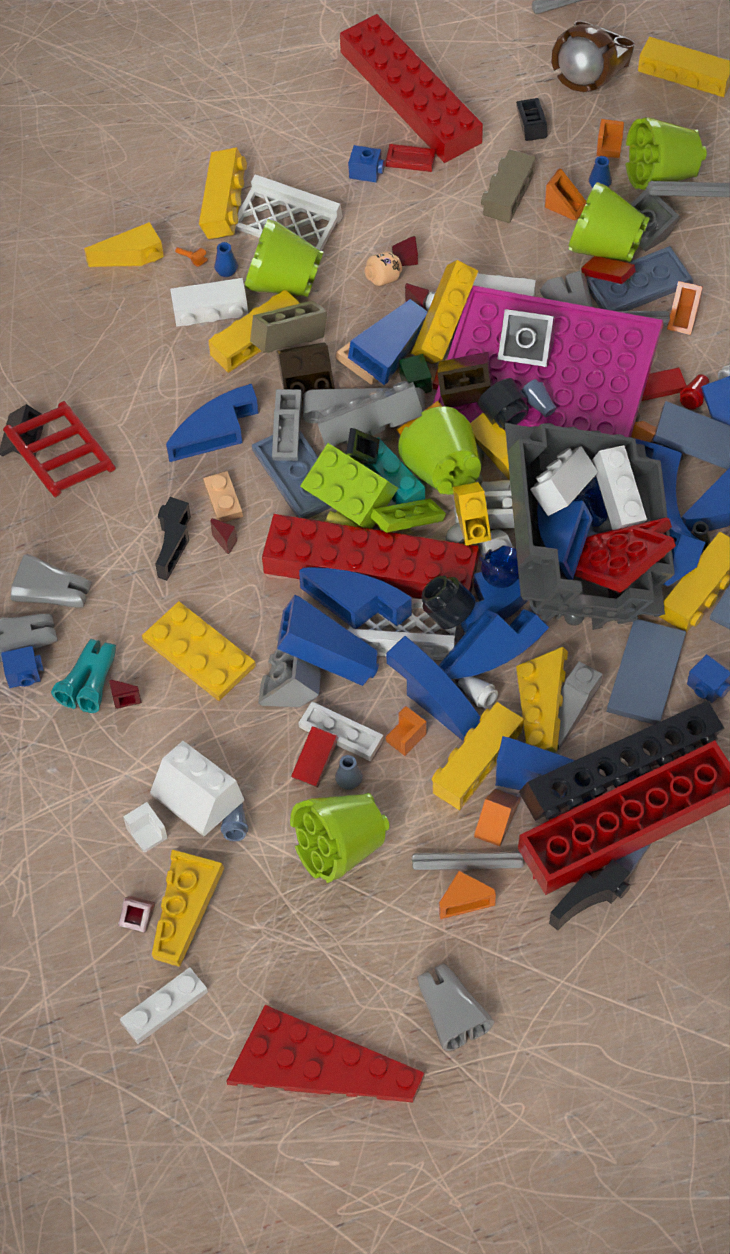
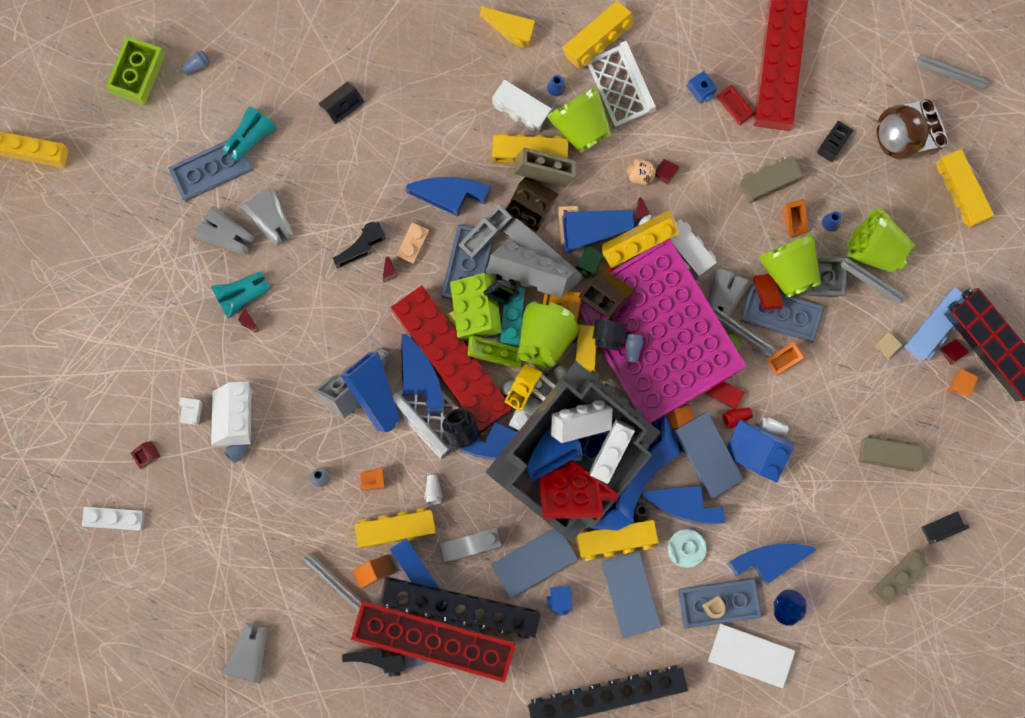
camera: 35 degrees right, 20 degrees up
(22, 667) = (211, 256): blue brick -> none
(41, 470) = (326, 139): red bar -> none
(184, 904) = (170, 473): yellow wing -> none
(197, 257) = (545, 66): orange hand -> none
(198, 651) = (312, 329): yellow plate -> none
(312, 1060) = (155, 613): red wing -> none
(314, 756) = (311, 451): red tile -> none
(337, 833) = (278, 510): lime cone -> none
(351, 734) = (339, 447): white plate -> none
(432, 688) = (406, 471): blue slope -> none
(465, 896) = (312, 600): orange slope -> none
(492, 643) = (459, 471): blue slope -> none
(500, 566) = (504, 431): clear blue piece -> none
(526, 338) = (661, 304): flat silver slope -> none
(541, 697) = (464, 521): yellow wing -> none
(610, 138) = (864, 200): orange panel -> none

